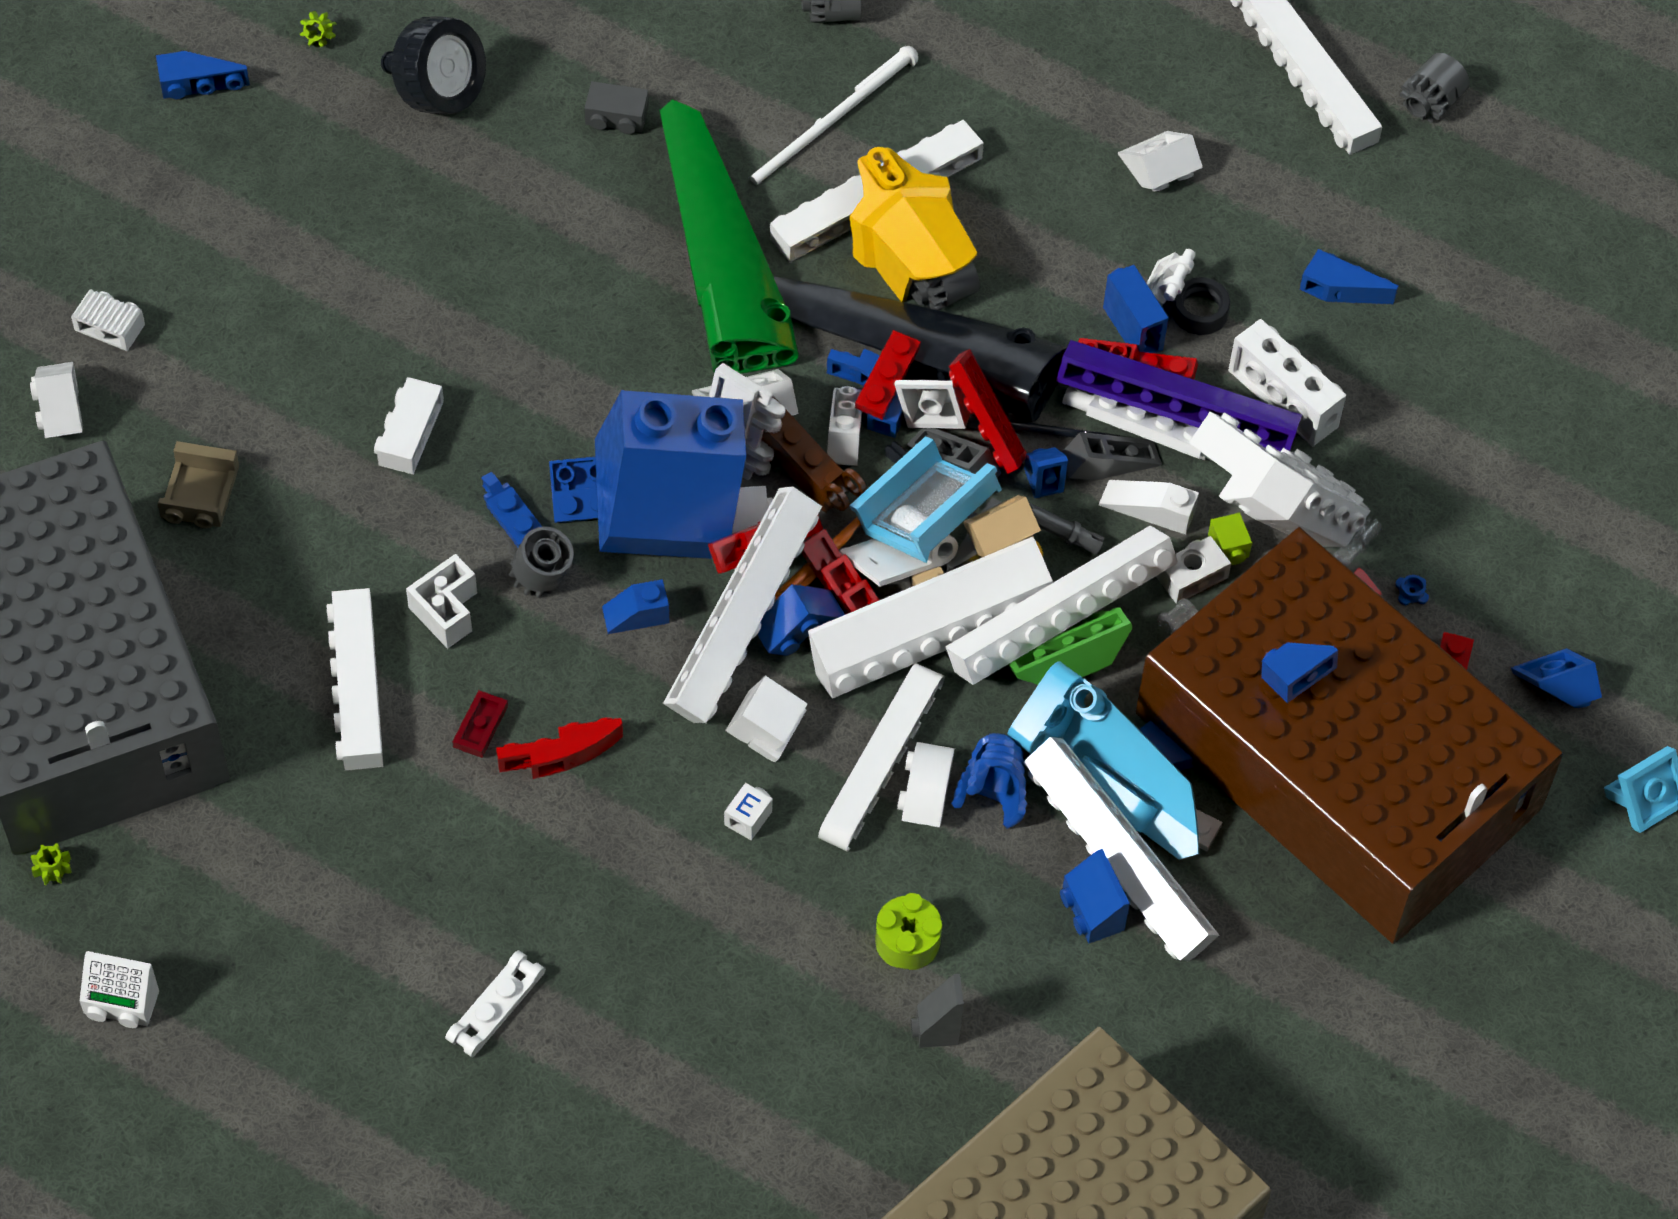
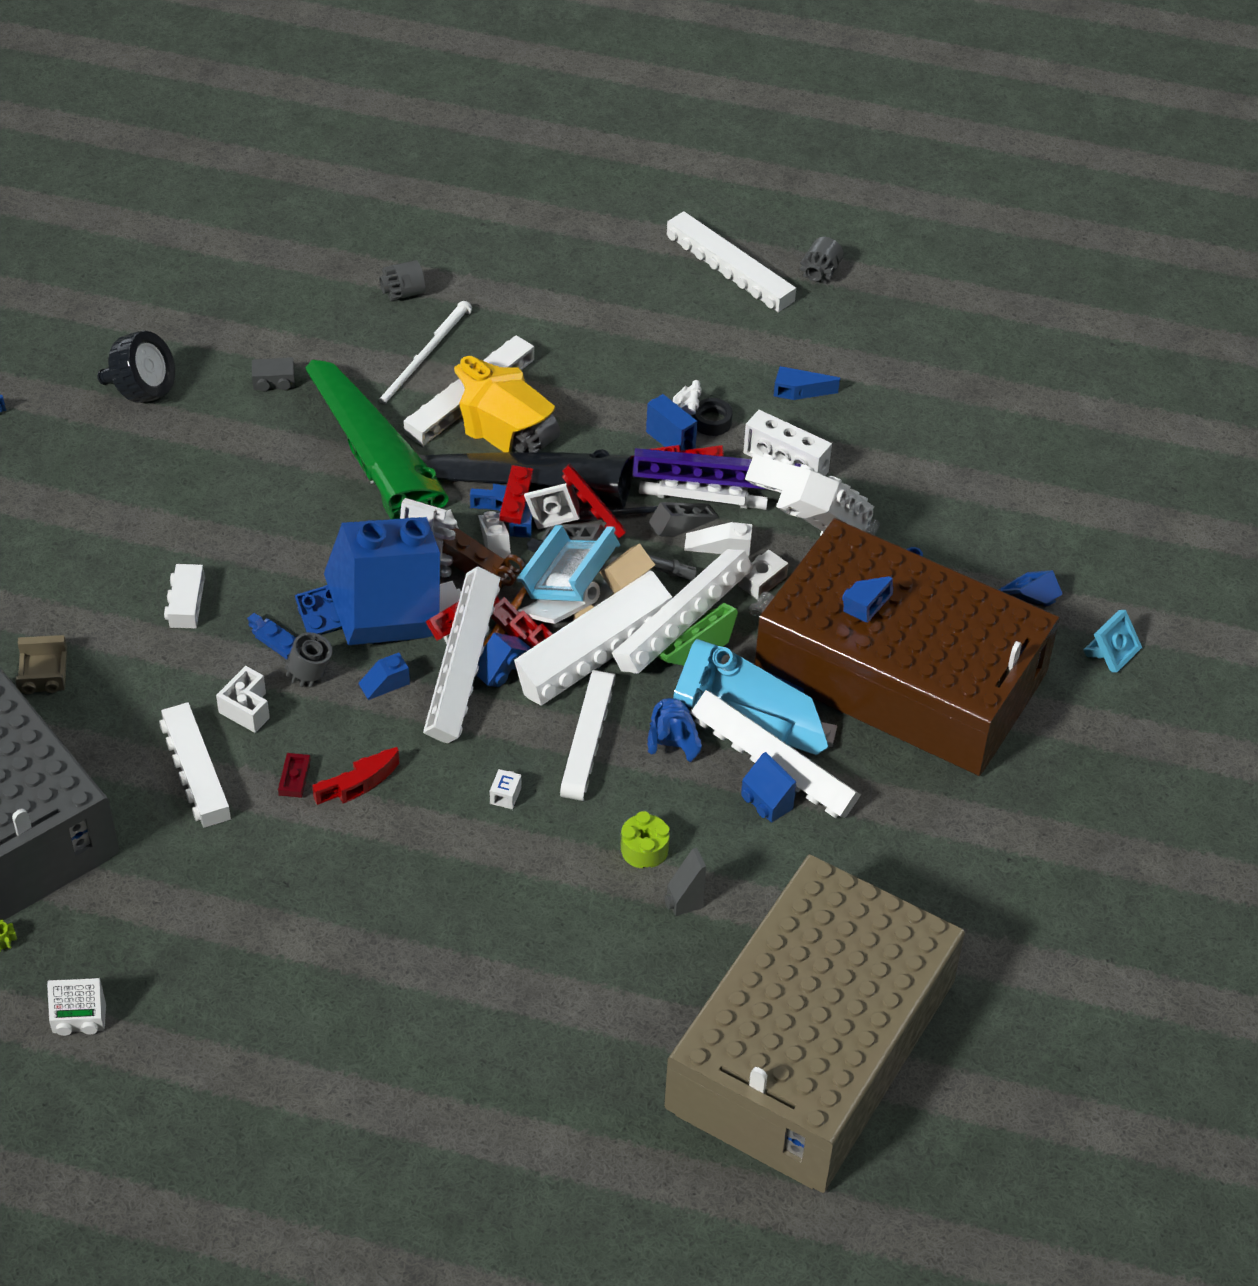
camera: 15 degrees left, 10 degrees down
(325, 27) = (40, 368): lime gear -> none
(495, 1004) = (361, 956): white plate -> none
(767, 718) = (500, 726): white plate -> none
(927, 784) = (626, 744): white brick -> none
(1046, 471) = (643, 532): blue slope -> none
(1162, 159) = (657, 335): white slope -> none
(1231, 537) = (782, 547): lime brick -> none

